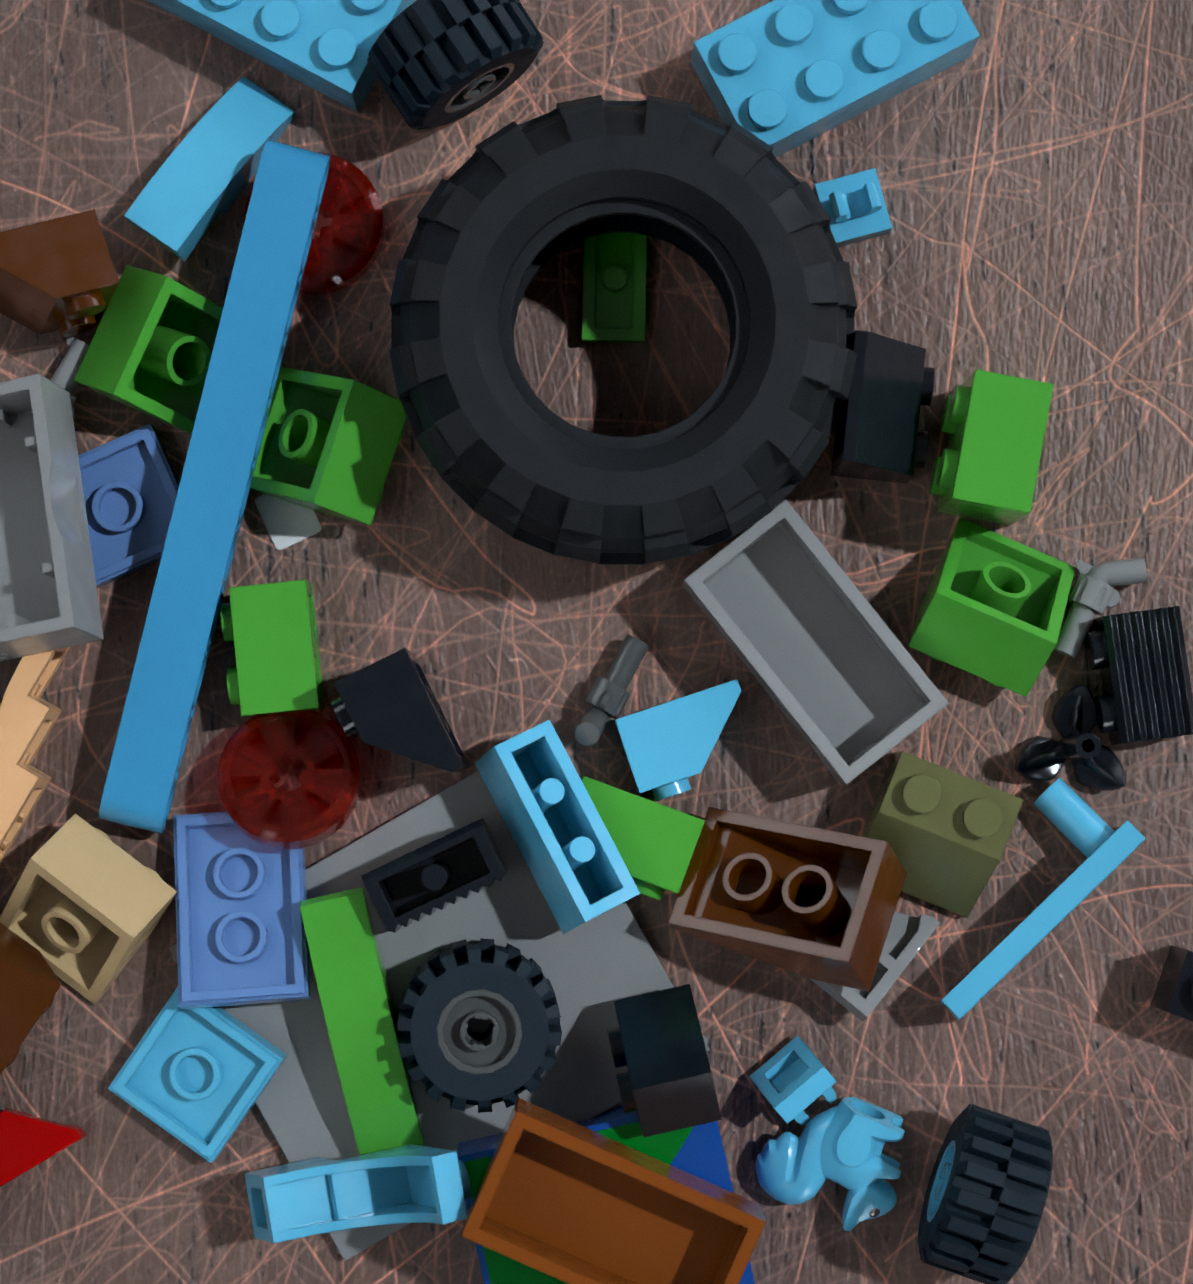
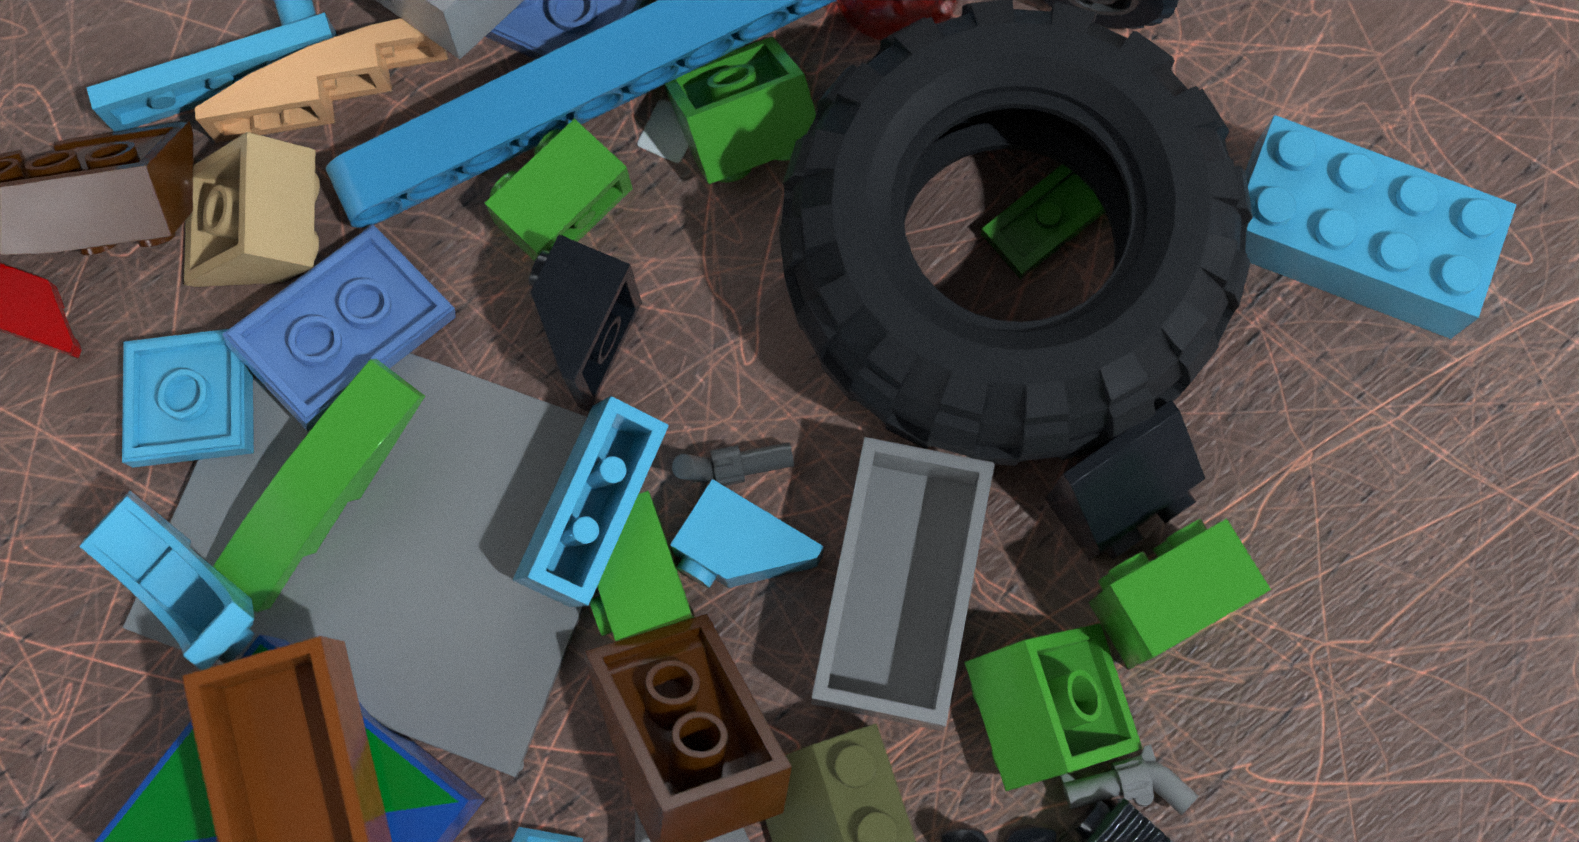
camera: 50 degrees right, 10 degrees down
(281, 816) = (448, 251): clear red wheel -> none
(435, 875) = (477, 441): black brick -> none
(479, 1025) = (385, 571): black wheel -> none
(665, 1060) = (467, 738): black brick -> none
(854, 207) = (1259, 344): medium azure tile -> none

